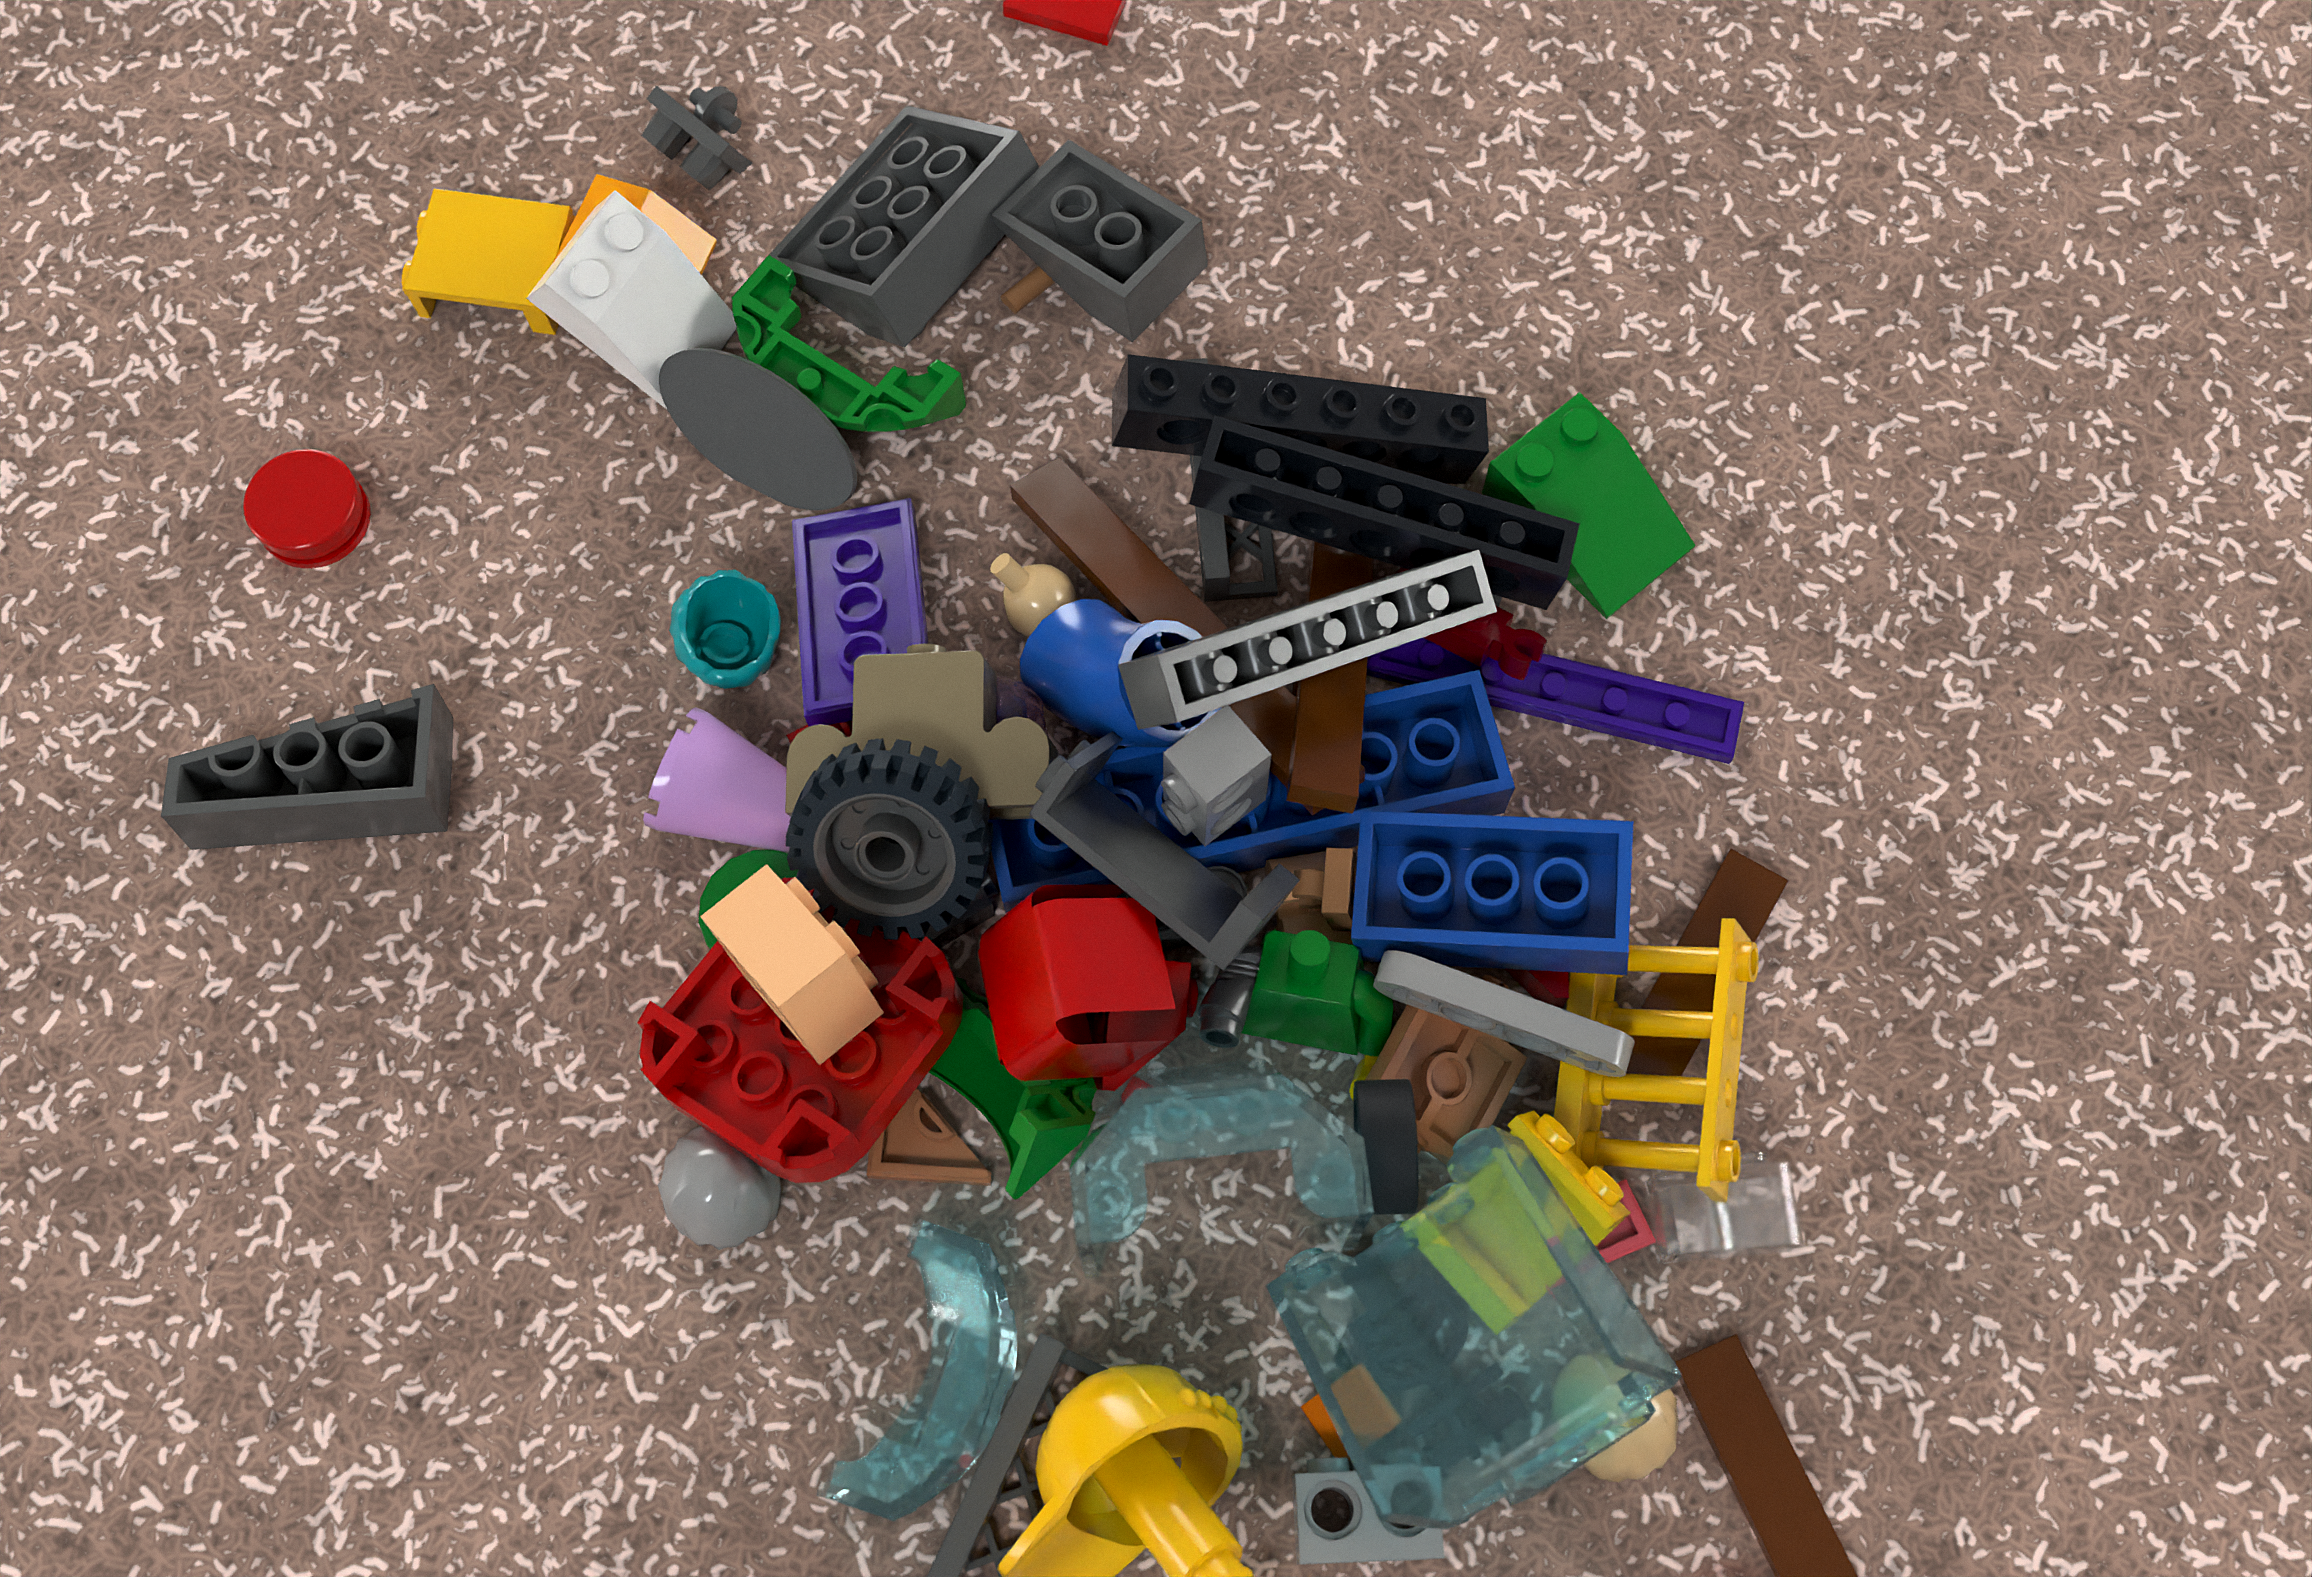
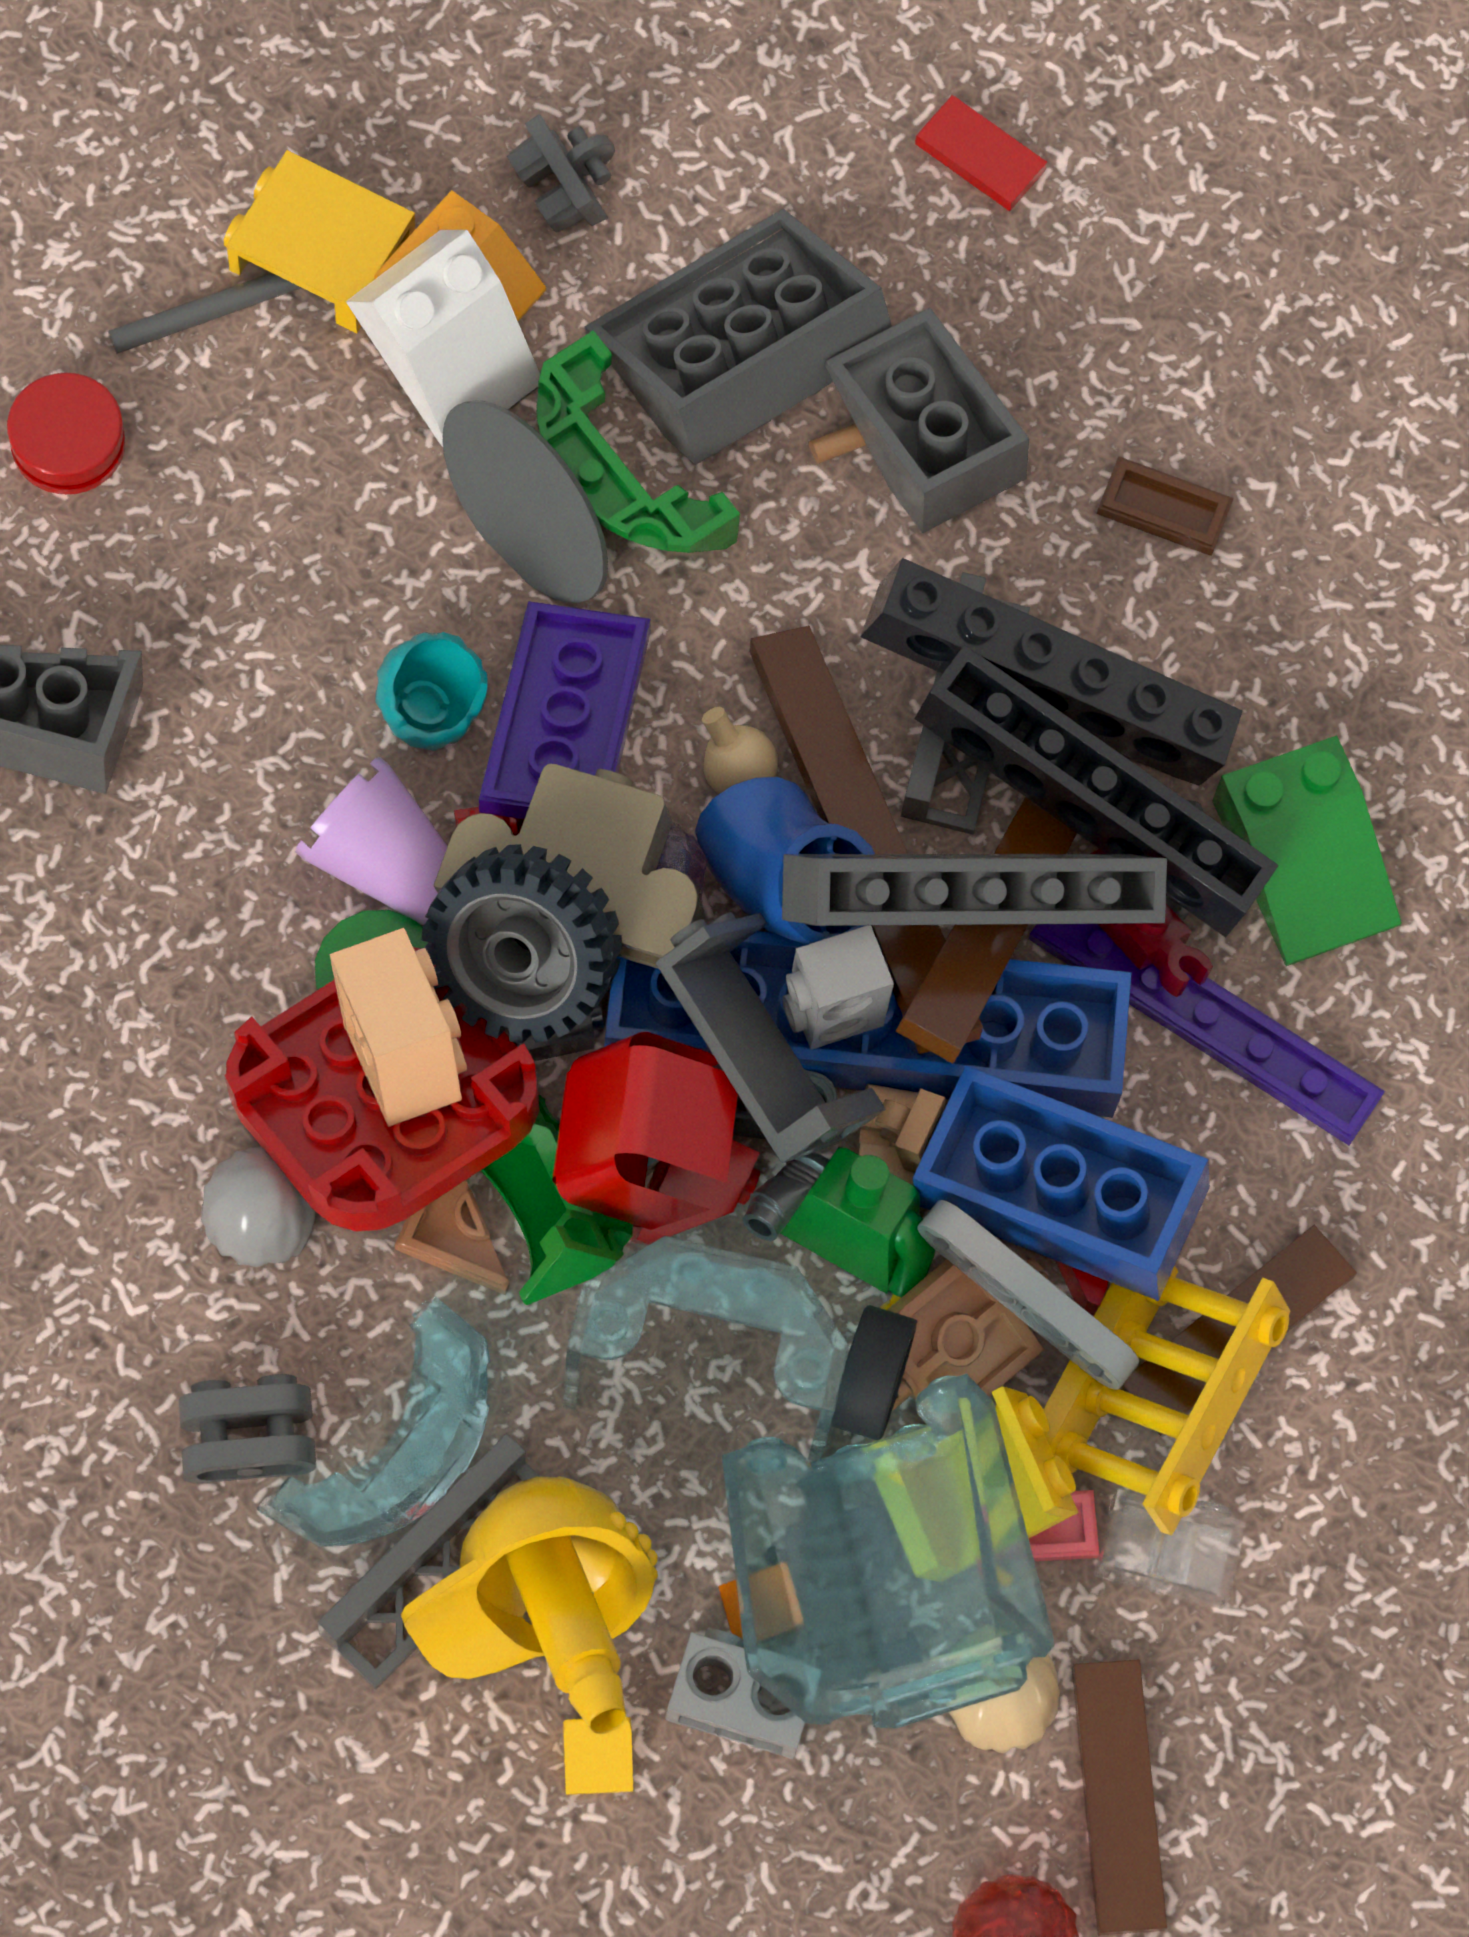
camera: 10 degrees right, 0 degrees up
(404, 359) = (199, 311): none -> dark grey bar
(741, 1405) = (272, 1403): none -> dark grey brick
(1339, 249) = (1164, 506): none -> reddish brown tile

